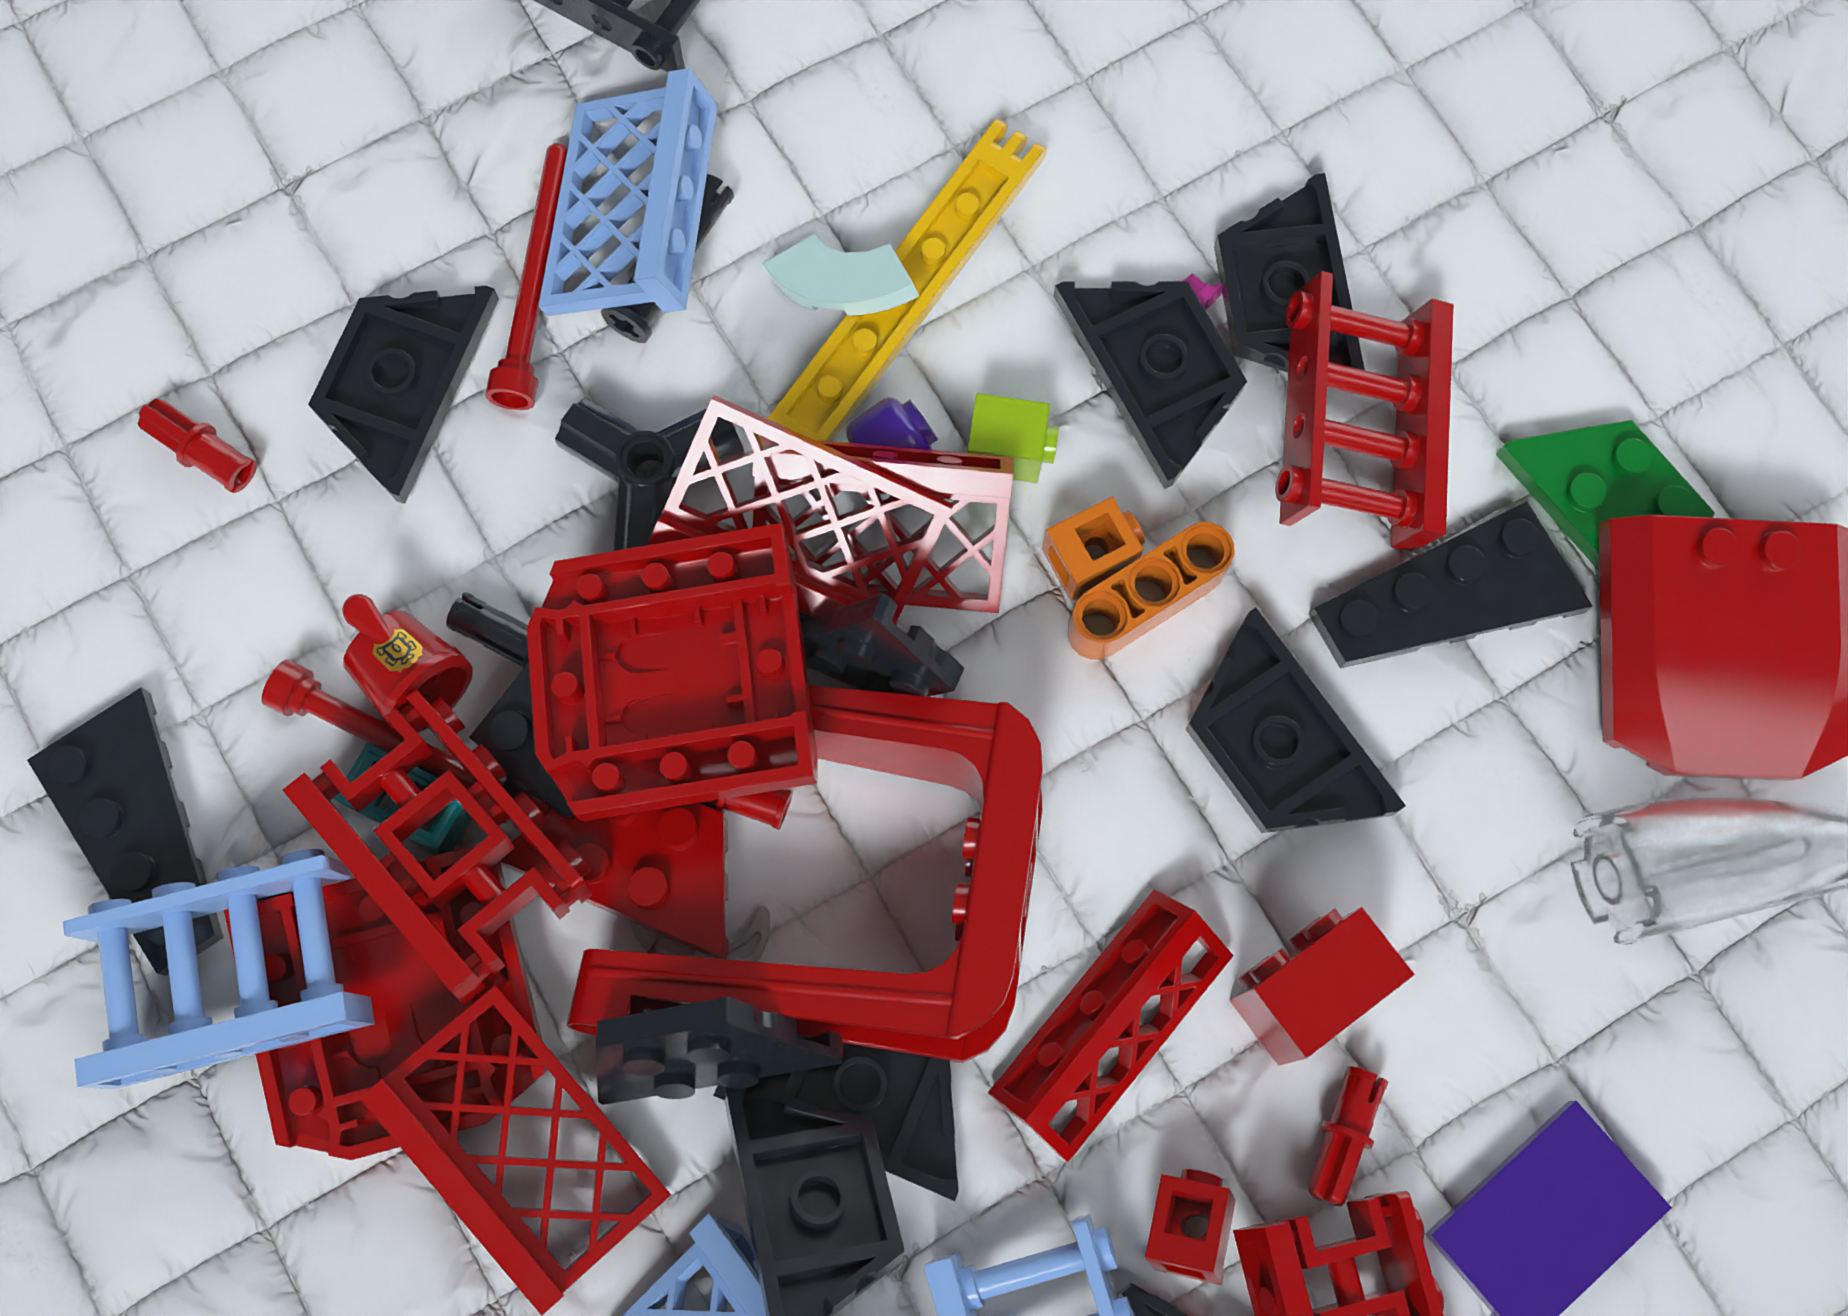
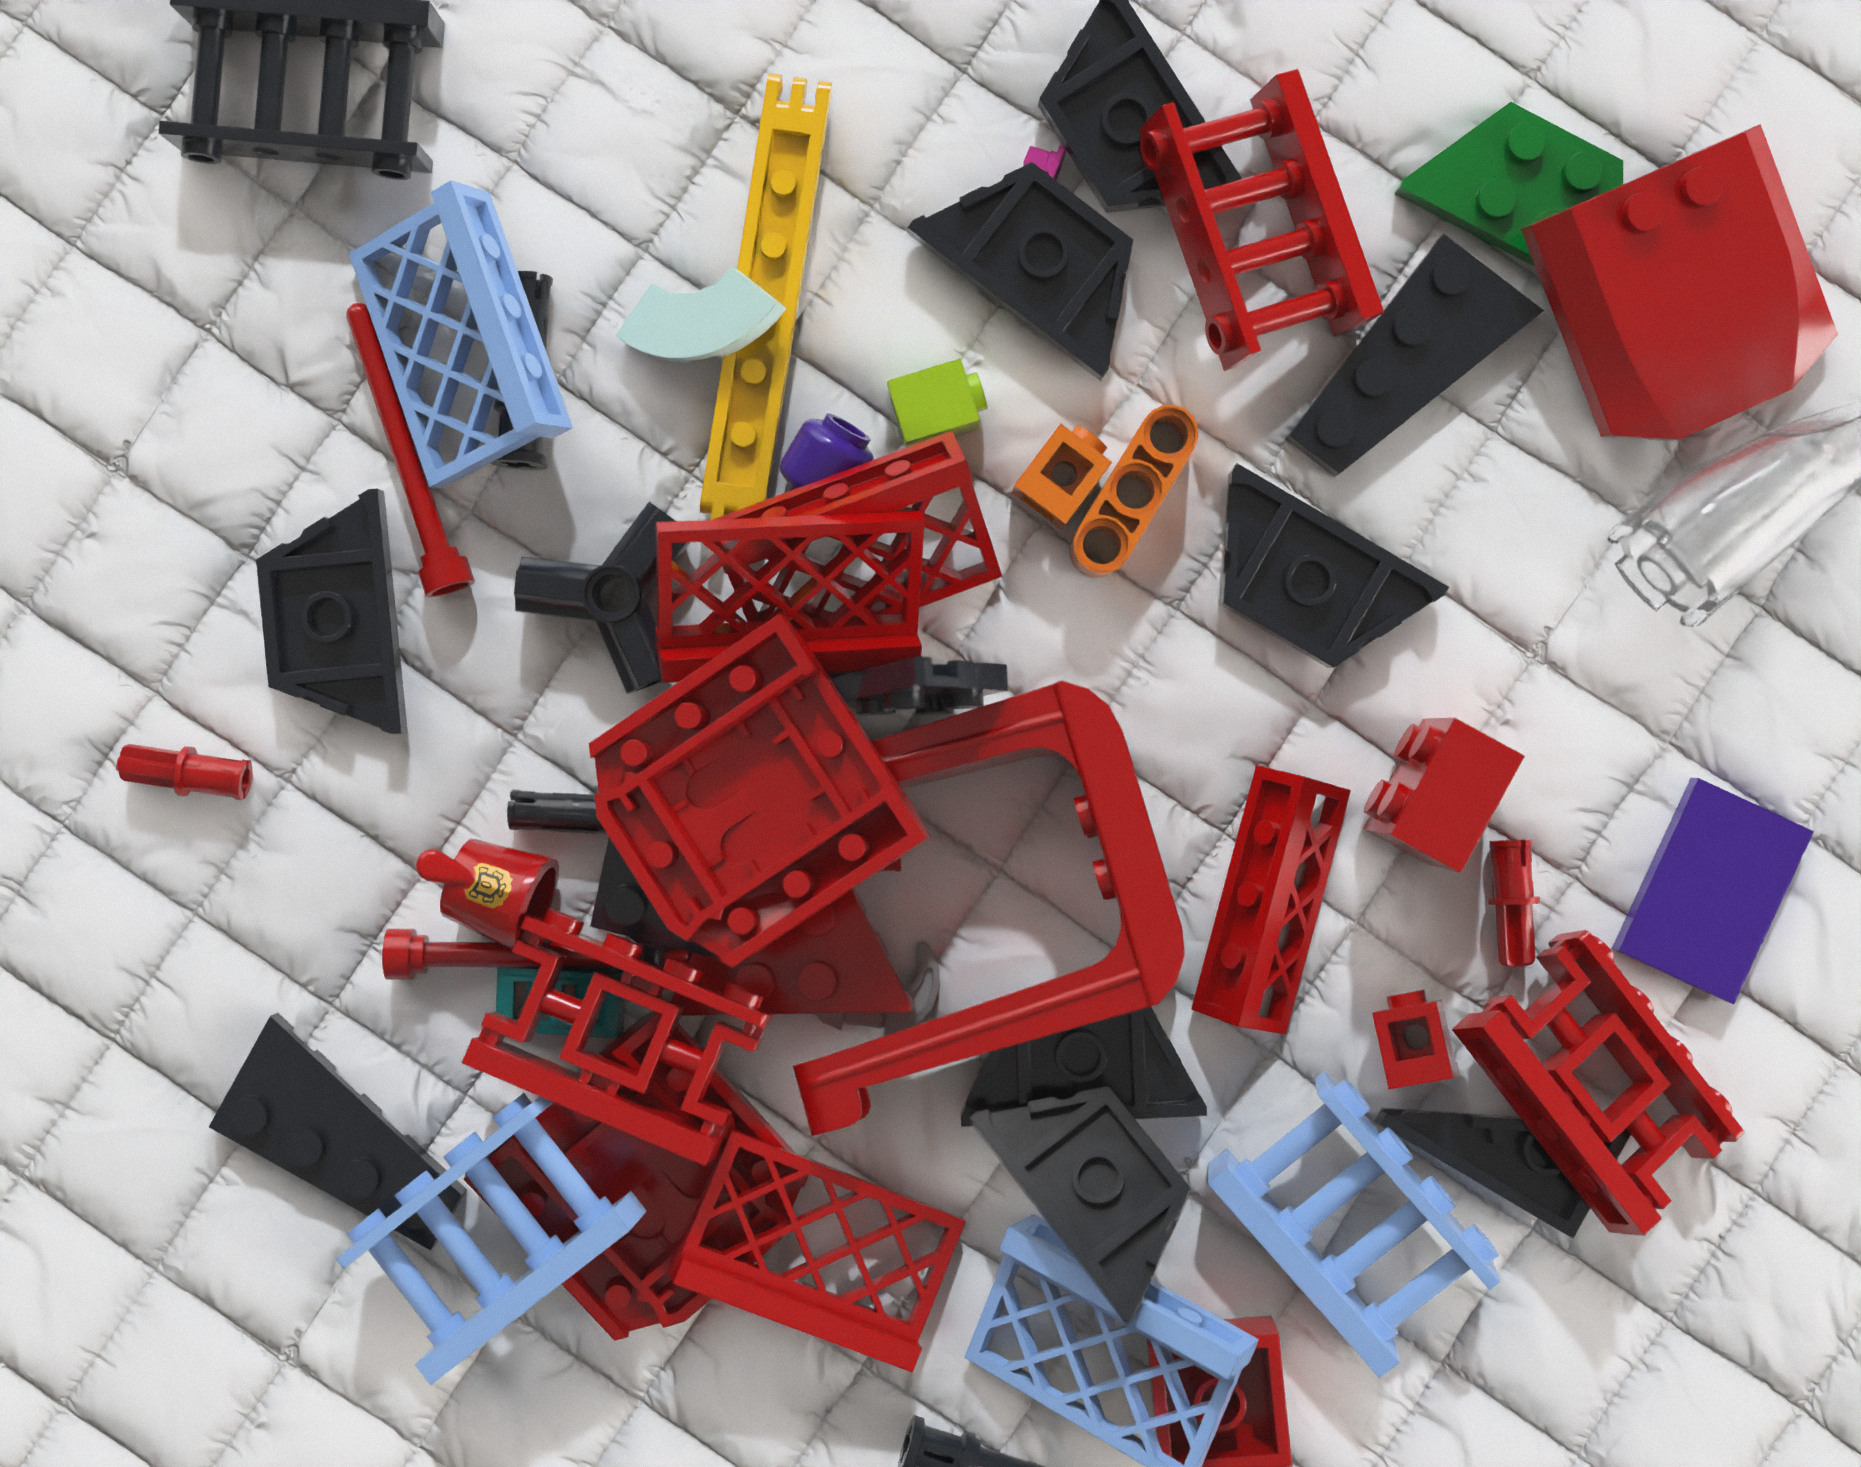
camera: 25 degrees left, 15 degrees up
(700, 1047) = (956, 1092): black wing -> none

